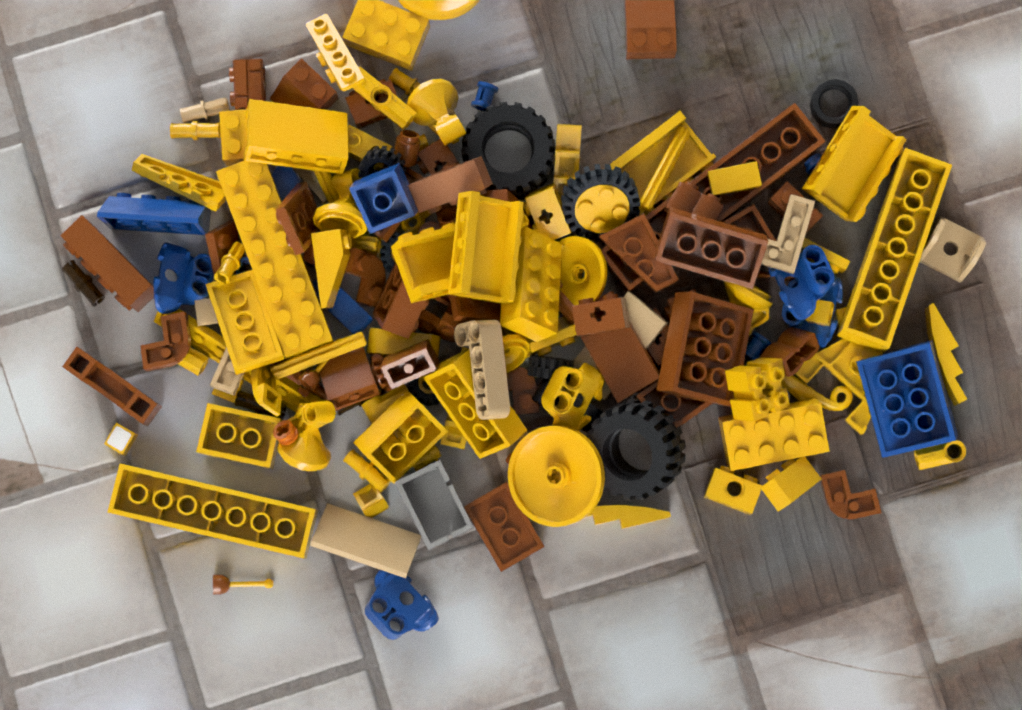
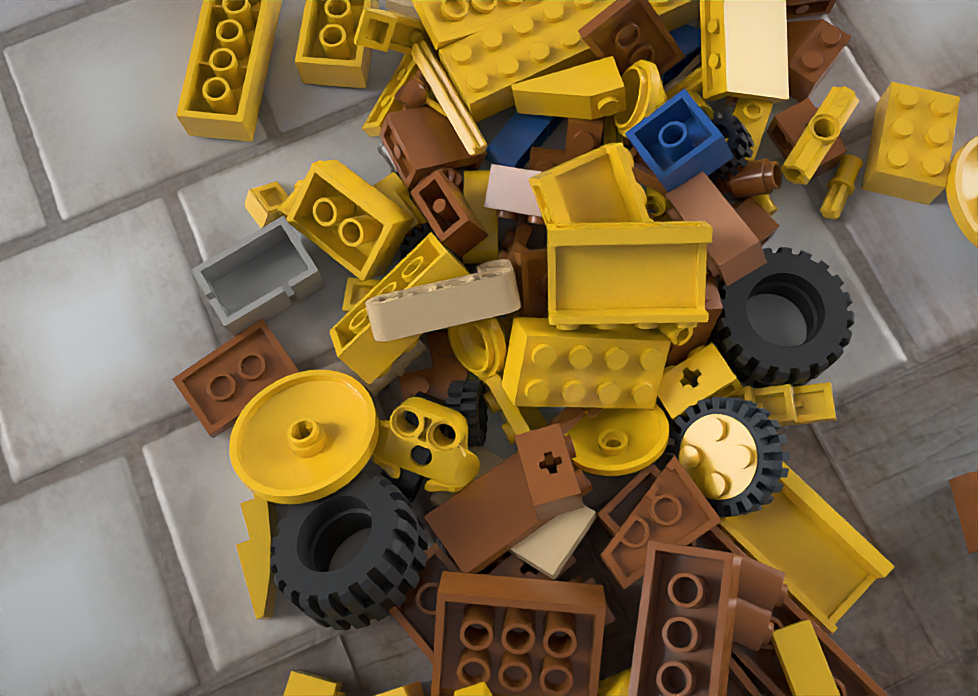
camera: 85 degrees right, 10 degrees down
(222, 584) = (153, 40): hinge -> none
(252, 404) = (380, 68): dark brown pin -> none
(288, 437) = (339, 70): orange bush -> none
(308, 450) = (326, 100): yellow piece -> none
(334, 54) = (867, 71): yellow bracket -> none
(366, 540) = (207, 195): tan tile -> none
(417, 616) = (108, 275): blue piece -> none
(430, 456) = (333, 270): yellow pin -> none
(435, 108) = (820, 213): yellow piece -> none
(484, 95) = (855, 282): blue bush -> none
(664, 168) = (796, 551): yellow axle -> none

